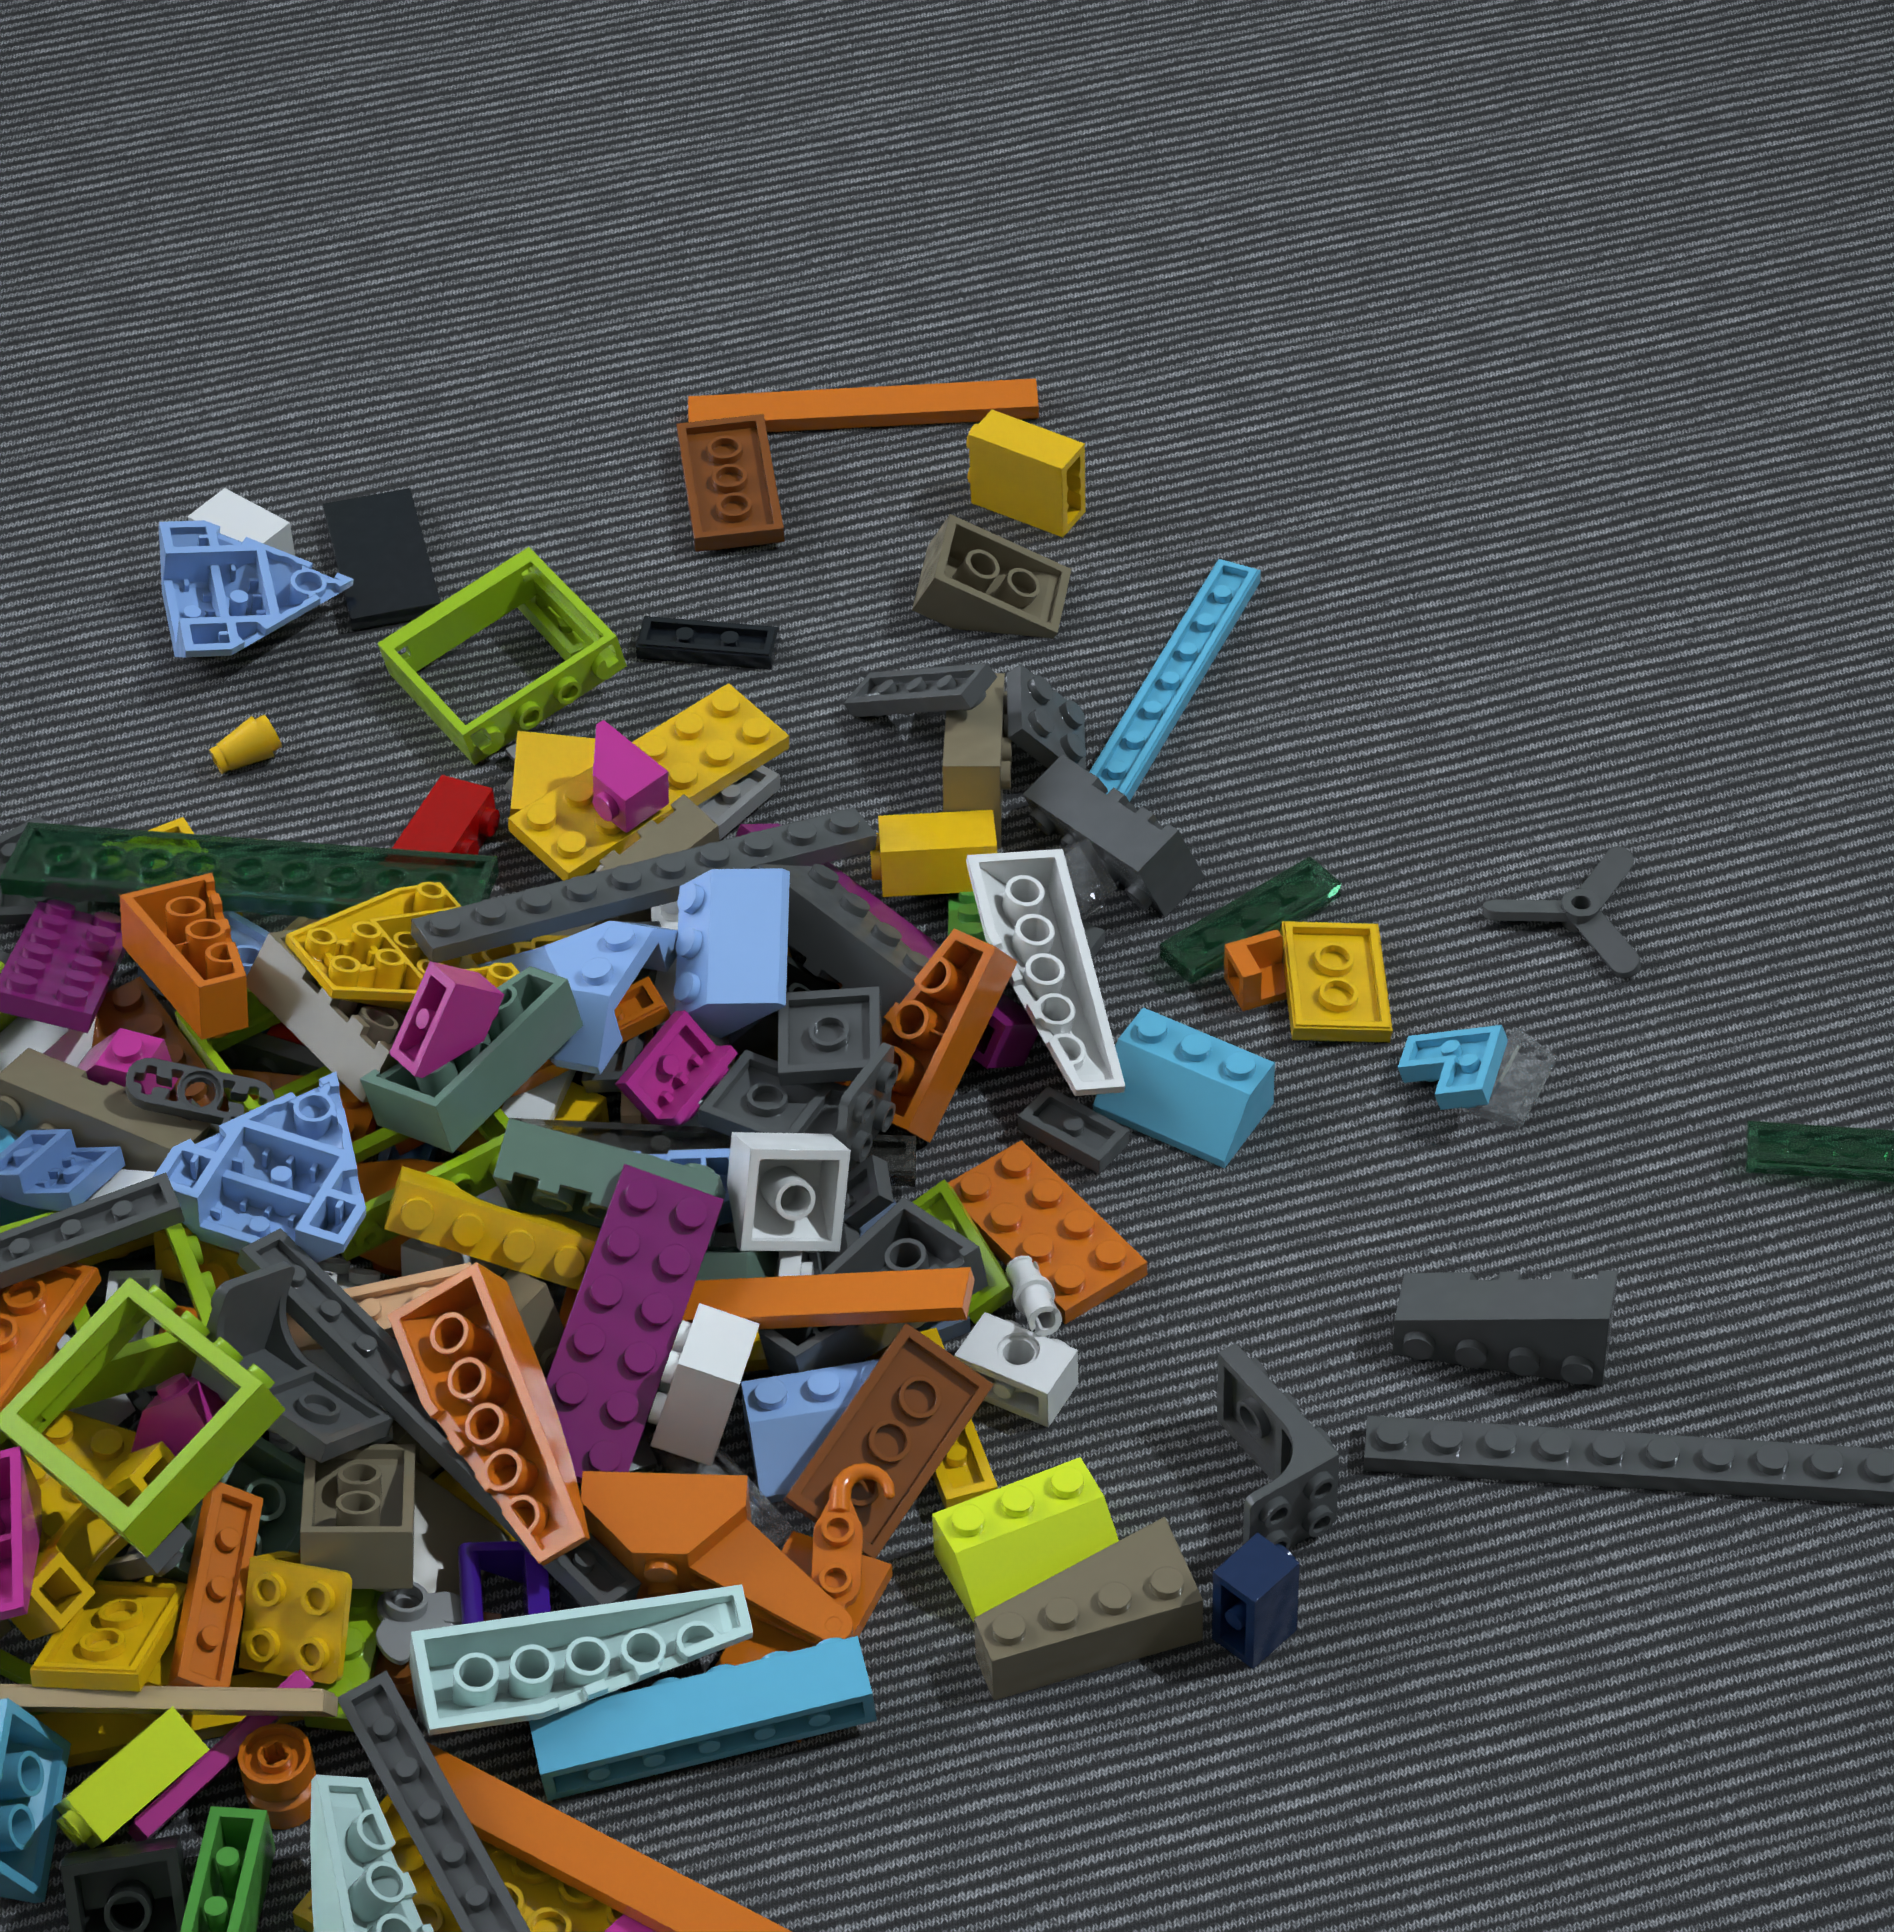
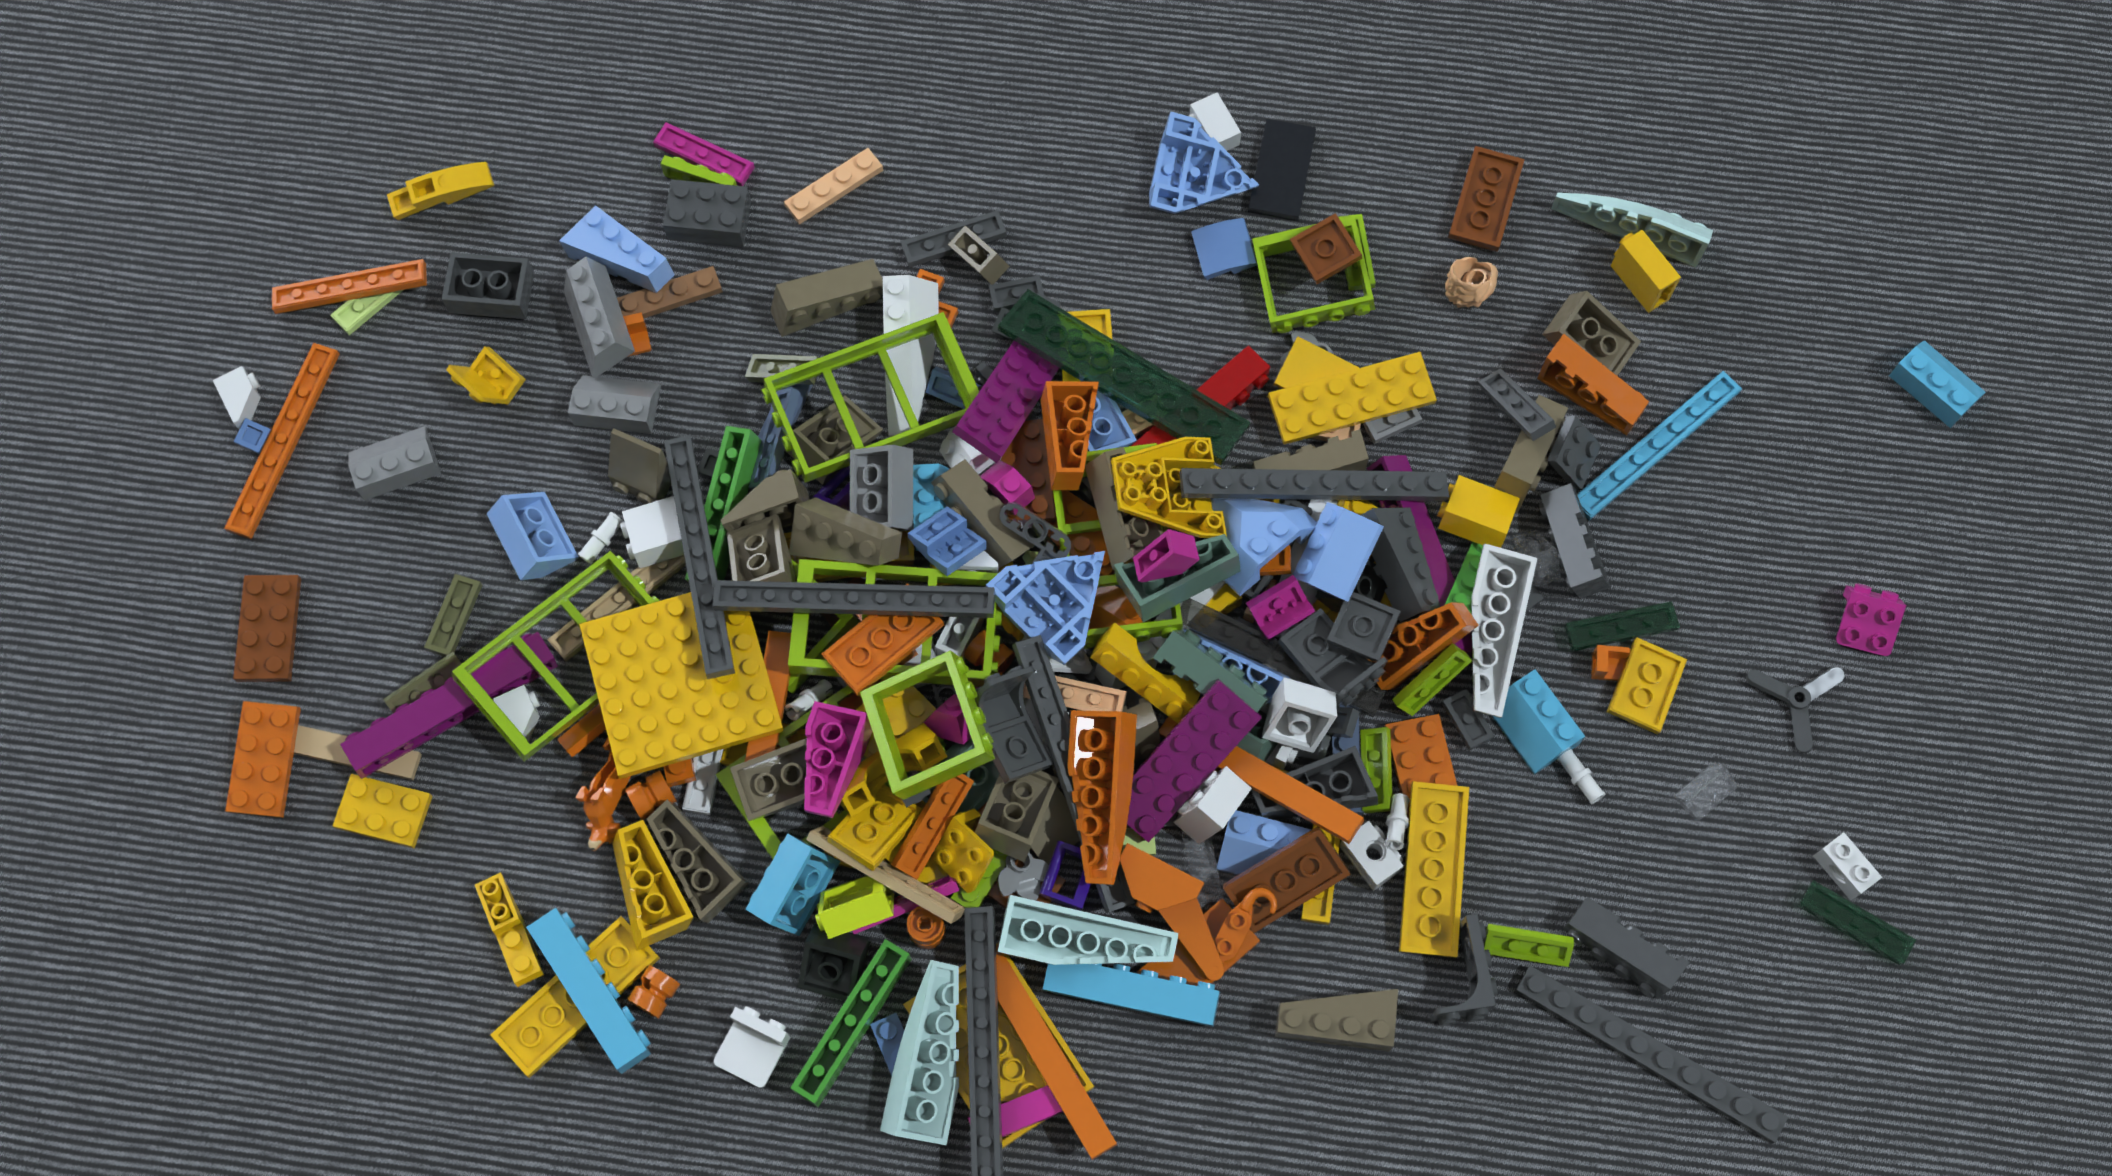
camera: 25 degrees right, 25 degrees up
(247, 744) = (1161, 272): yellow cone -> none
(336, 681) = (1224, 248): none -> medium blue slope
(505, 599) = (1326, 248): none -> dark orange plate
(626, 780) = (1335, 402): dark pink slope -> none
(707, 642) = (1426, 305): black tile -> none
(761, 582) = (1470, 282): none -> light nougat hair
(874, 405) = (1582, 172): orange tile -> none
(940, 431) = (1668, 231): none -> light aqua wedge
(983, 1084) = (1432, 679): none -> lime plate
(1011, 628) = (1592, 385): none -> orange wedge
(1021, 1534) = (1329, 963): neon yellow slope -> none
(1133, 1342) = (1434, 869): none -> yellow plate
(1255, 1600) = (1420, 1055): dark blue brick -> none
(1301, 1134) = (1581, 776): none -> white pin
(1358, 1383) = (1529, 945): none -> lime plate
(1460, 1059) = (1686, 773): medium azure plate -> none
(1545, 465) = (1936, 383): none -> medium azure slope
(1628, 770) = (1870, 619): none -> dark pink bracket
(1788, 1081) = (1847, 866): none -> white brick

